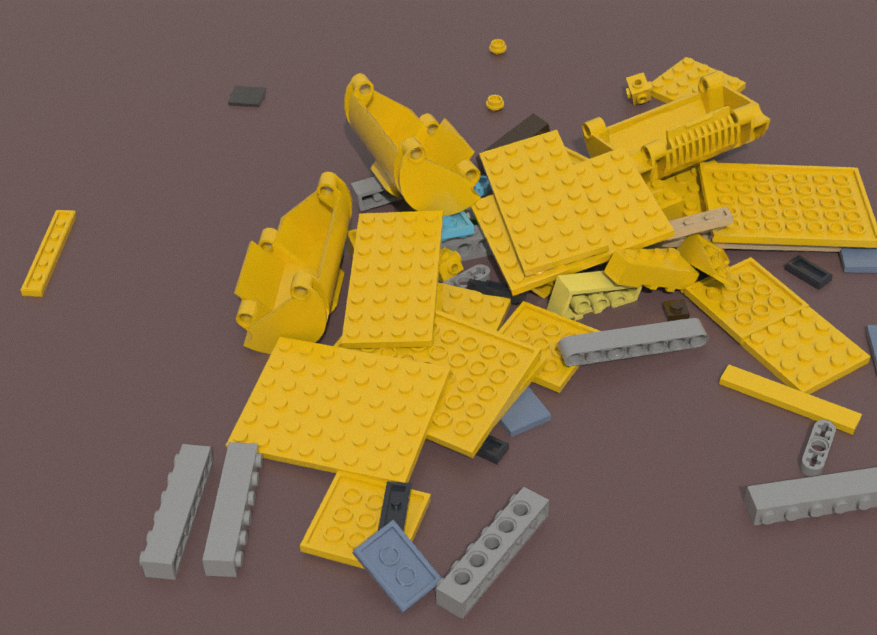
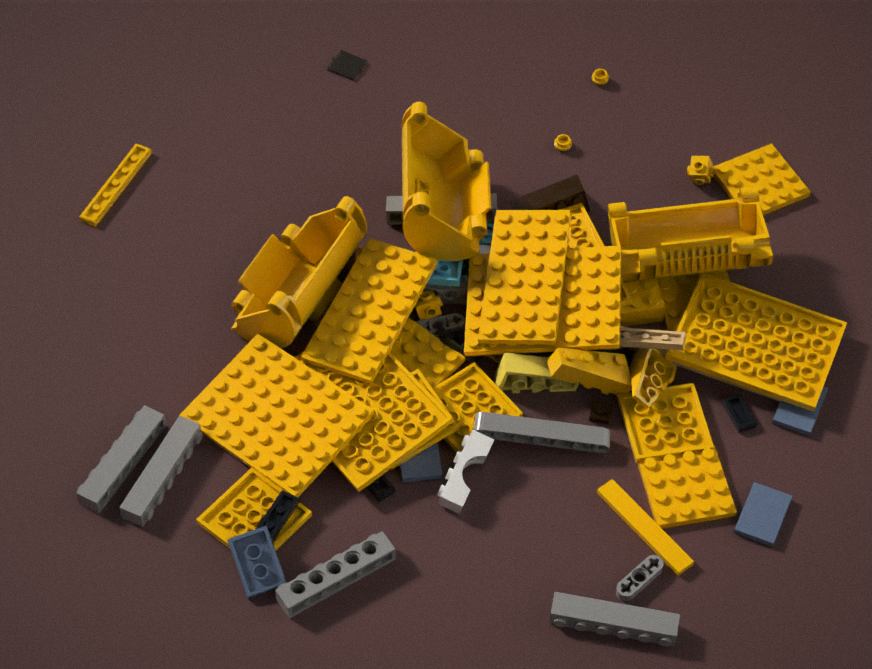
camera: 20 degrees right, 10 degrees up
(577, 424) = (474, 452): none -> white arch

